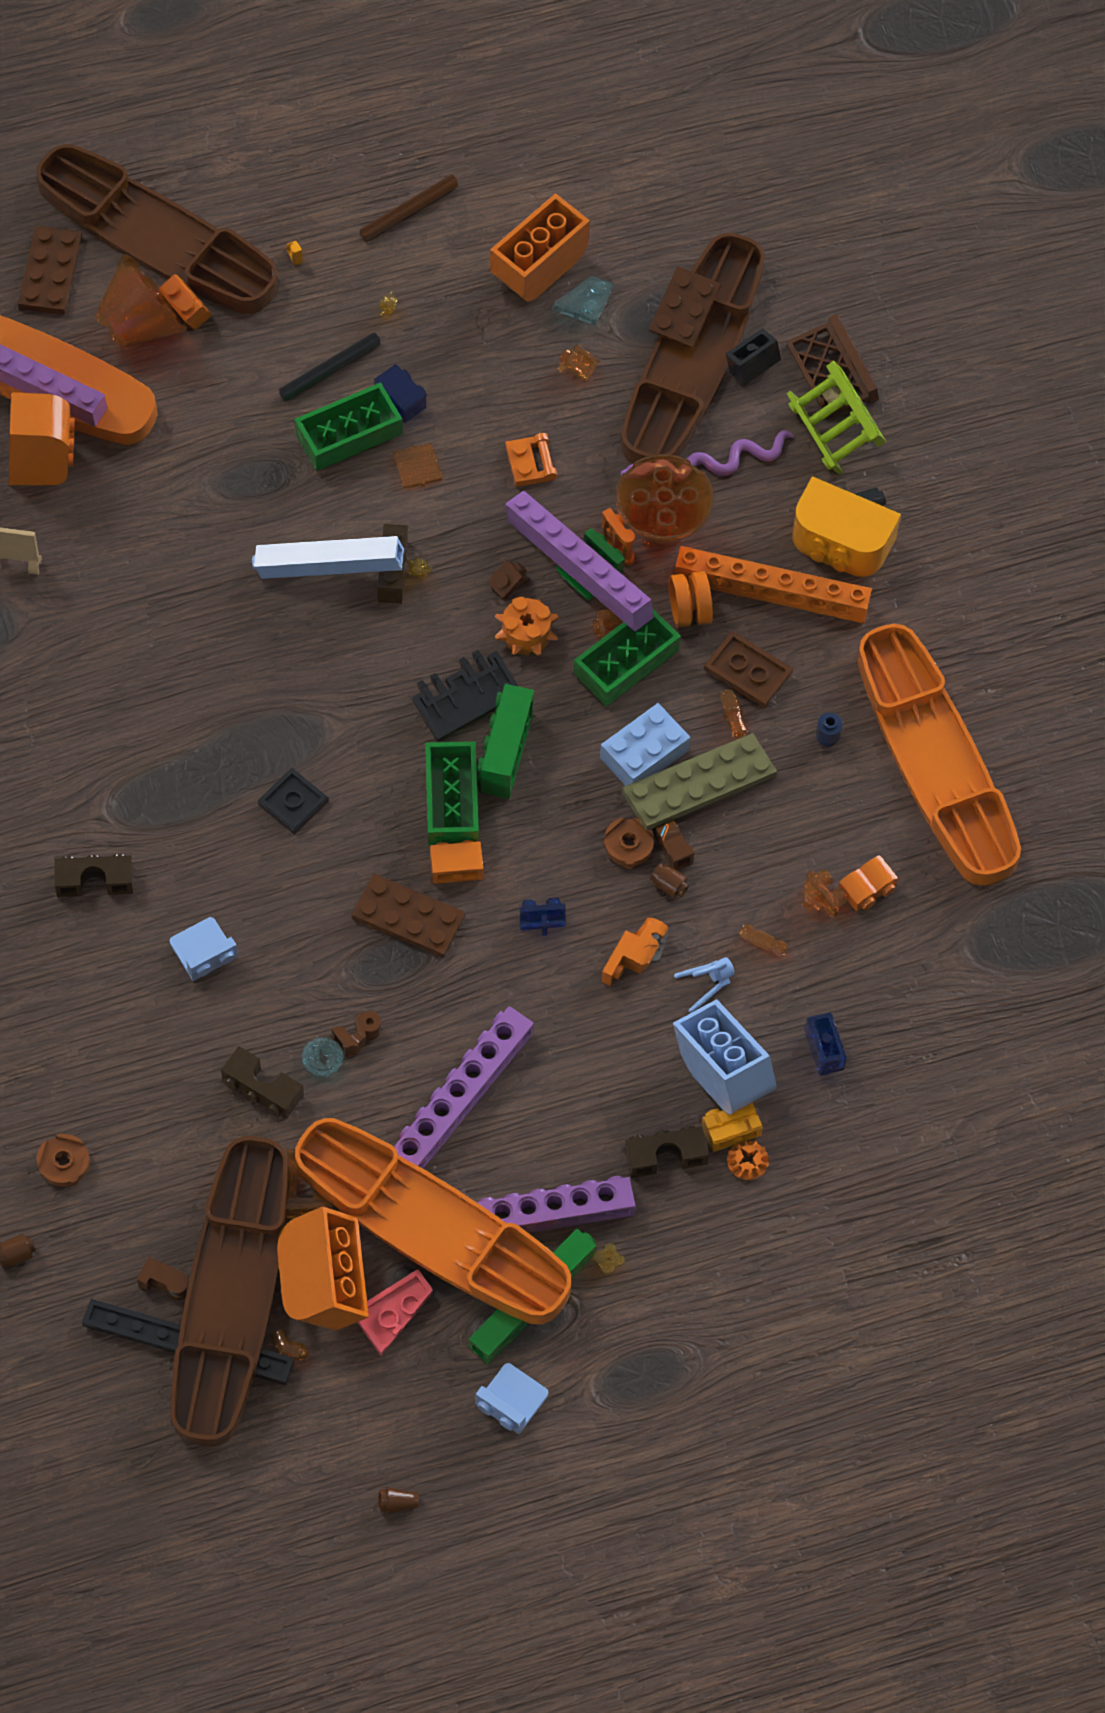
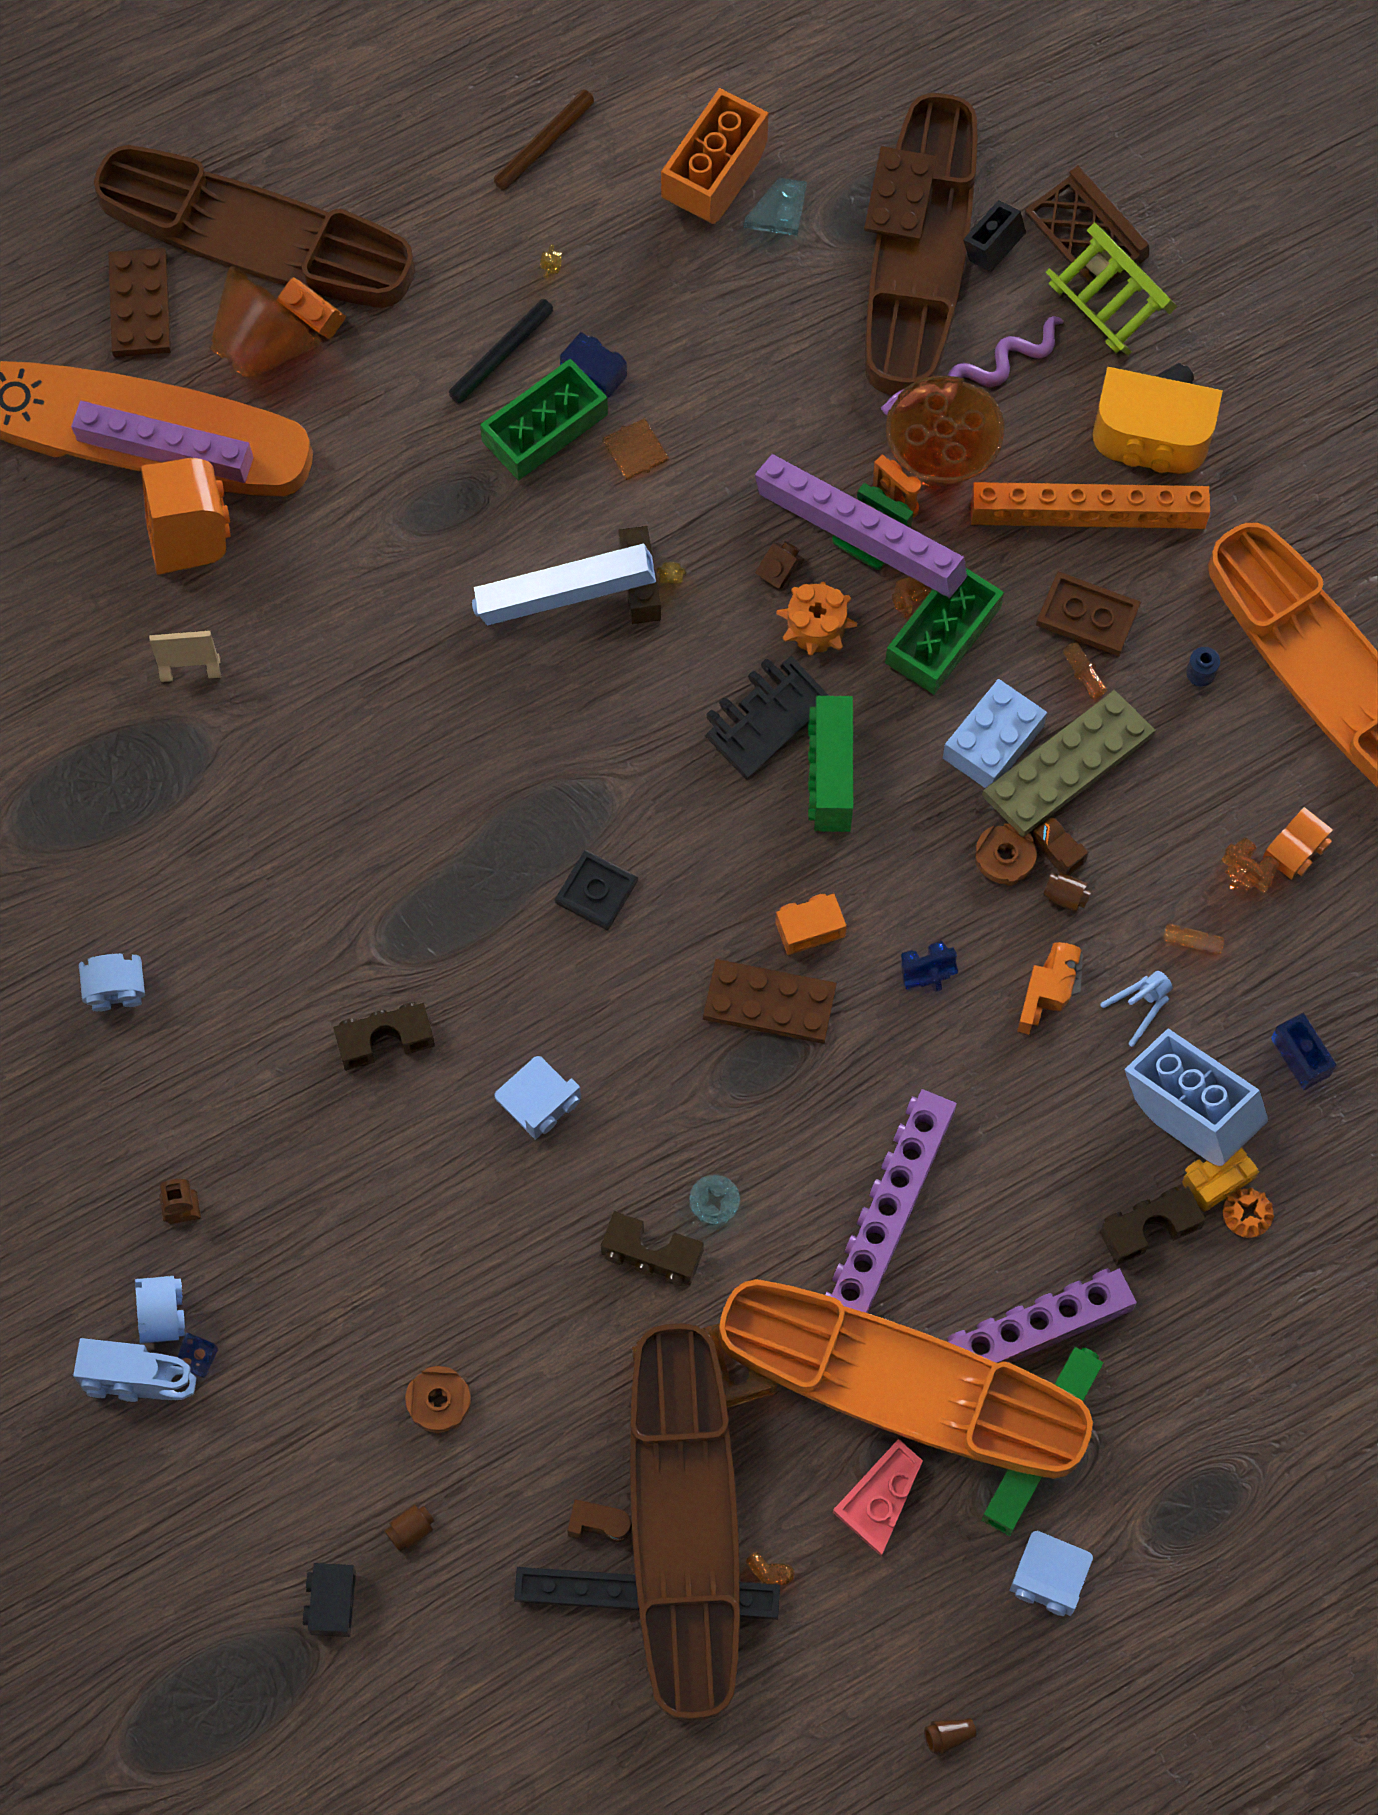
camera: 10 degrees left, 5 degrees up
(294, 252) = (424, 221): light orange tile -> none
(322, 1269) = (790, 1471): orange brick -> none
(366, 1028) = (757, 1151): reddish brown leg -> none
(451, 792) = (783, 841): green brick -> none
(523, 462) = (758, 418): orange plate -> none
(578, 362) = (791, 284): clear orange bracket -> none
(609, 1251) = (1109, 1373): clear yellow plate -> none
(690, 599) = (1002, 544): orange wheel -> none

